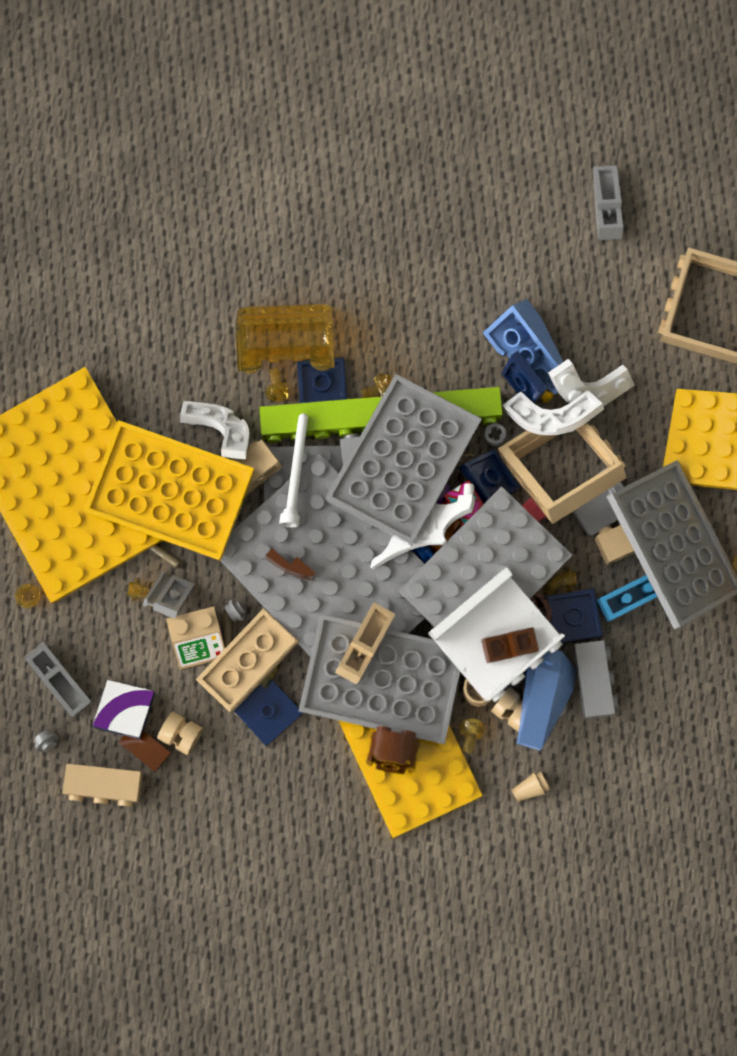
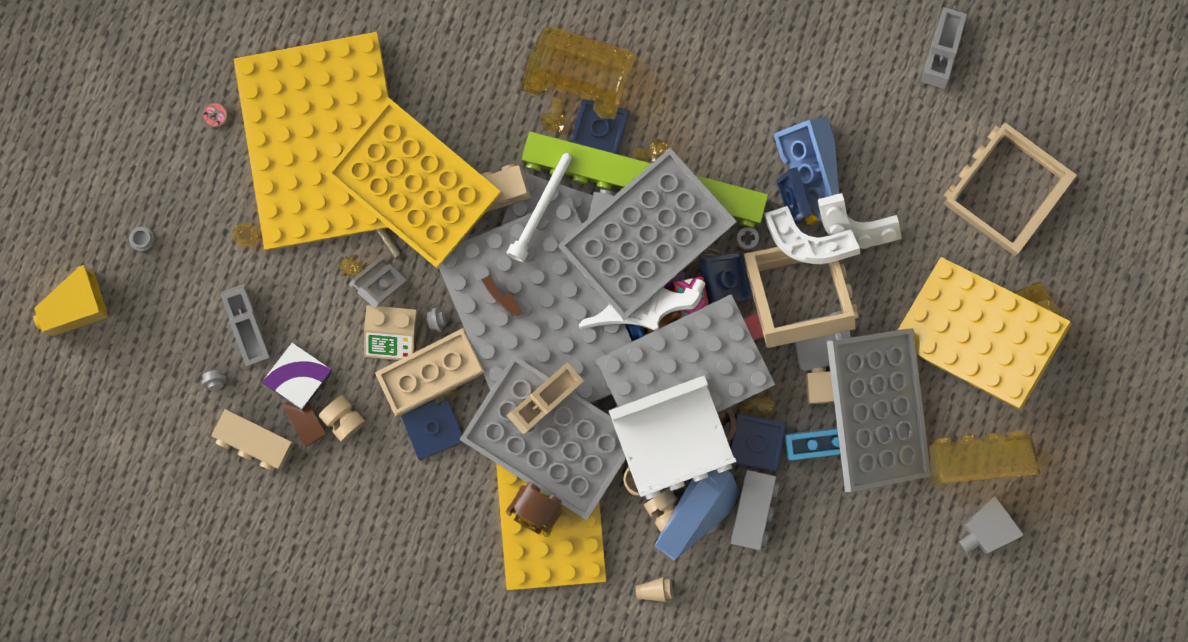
camera: 25 degrees right, 5 degrees up
(223, 419) = (490, 131): white plate -> none
(472, 730) = (619, 515): clear yellow plate -> none
(510, 645) = (681, 450): reddish brown slope -> none

